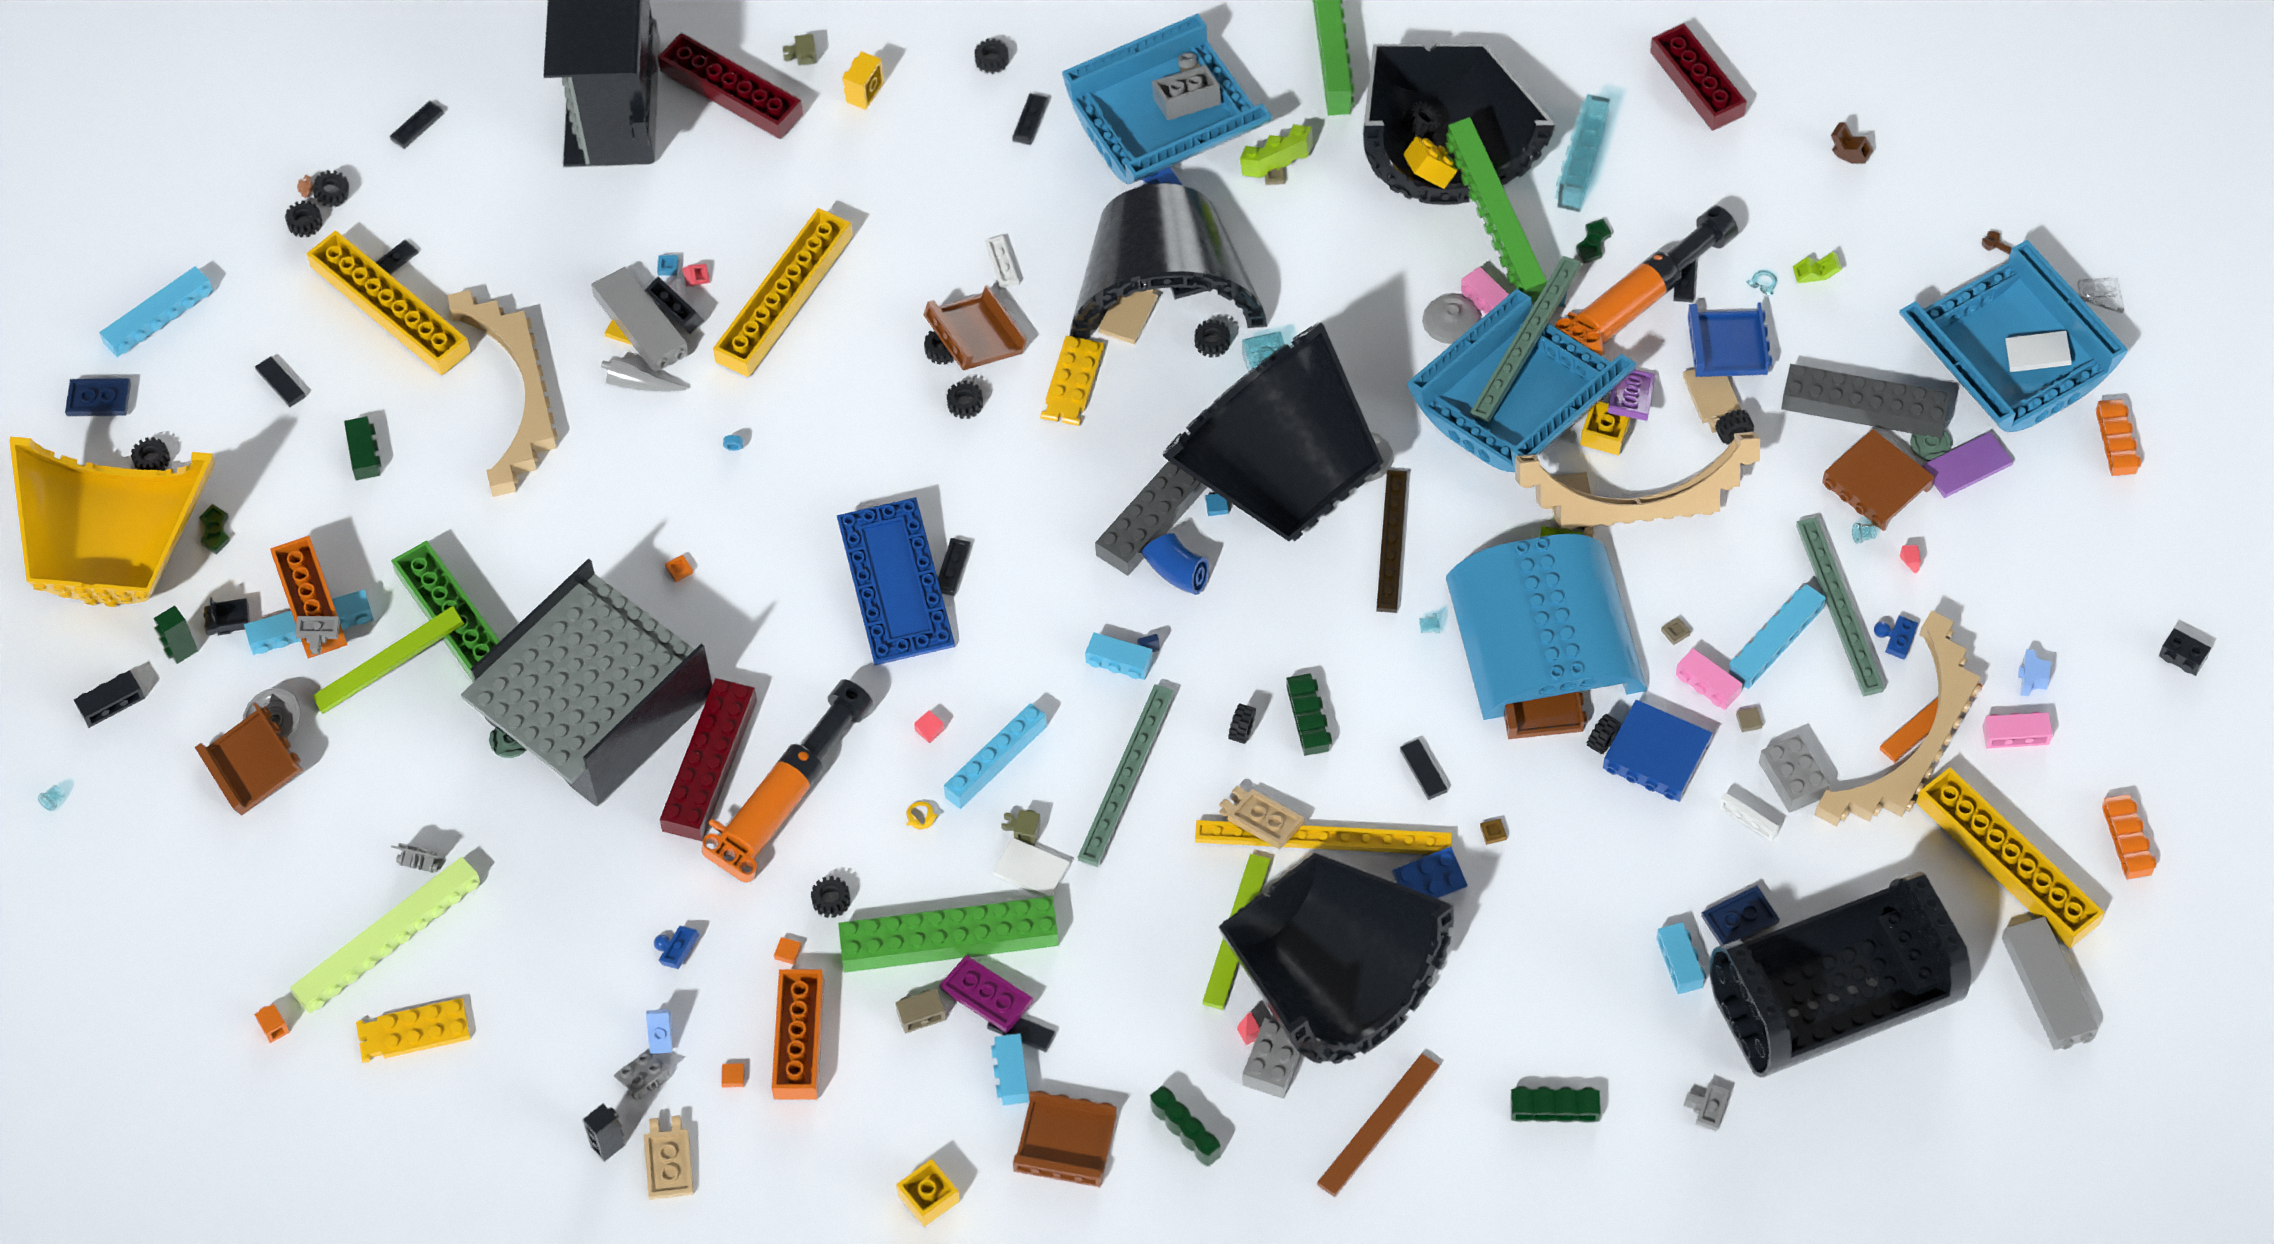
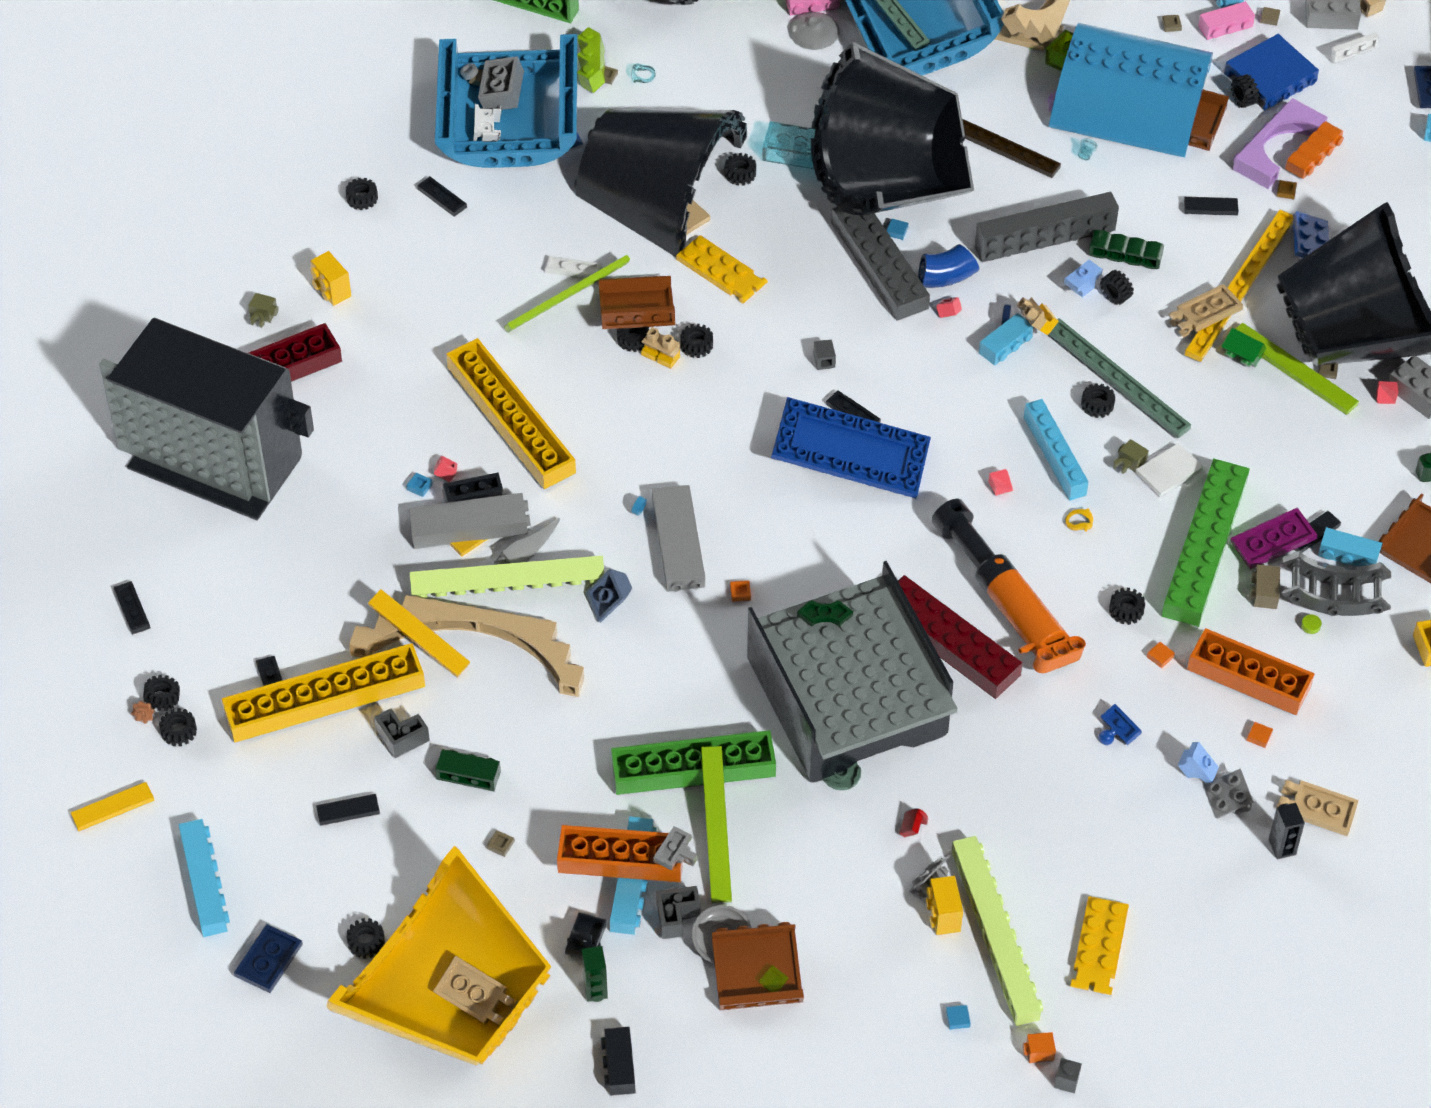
camera: 65 degrees left, 5 degrees down
(126, 555) = (473, 991): none -> tan tile
(201, 215) = (112, 806): none -> yellow tile
(244, 779) = (773, 979): none -> clear neon green tile
(249, 1056) = (1067, 1075): none -> dark grey brick
(279, 667) = (675, 905): none -> dark grey brick
(279, 944) = (958, 1017): none -> dark azure tile
(299, 509) = (500, 843): none -> dark tan tile
(371, 378) = (401, 736): none -> dark grey brick
(385, 879) = (944, 905): none -> yellow brick
(476, 816) = (912, 821): none -> red tile
(485, 340) = (419, 633): none -> yellow tile
(591, 377) = (506, 575): none -> yellowish green brick
(616, 464) = (608, 593): none -> sand blue slope
(625, 631) = (816, 613): none -> dark green tile
(710, 490) = (678, 538): none -> light grey brick
(898, 1070) = (1311, 624): none -> lime tile
(934, 373) = (661, 348): none -> tan hips
(959, 270) = (566, 293): none -> lime tile
(967, 1067) = (1335, 575): none -> dark grey fence
(1007, 510) = (824, 354): none -> dark grey brick
(1082, 758) = (1101, 392): none -> black tyre
(1125, 102) = (484, 124): none -> white piece
(1135, 591) = (949, 307): none -> coral slope
(1156, 669) = (1038, 316): none -> tan hips
(1229, 870) = (1243, 347): none -> green brick
(1237, 689) = (1083, 278): none -> light blue brick
(1287, 628) = (1045, 226): none -> dark grey brick
(1299, 195) = (639, 67): none -> clear light blue piece
(1514, 780) = (1292, 118): none -> lavender arch
(1564, 834) = (1314, 150): none -> orange brick

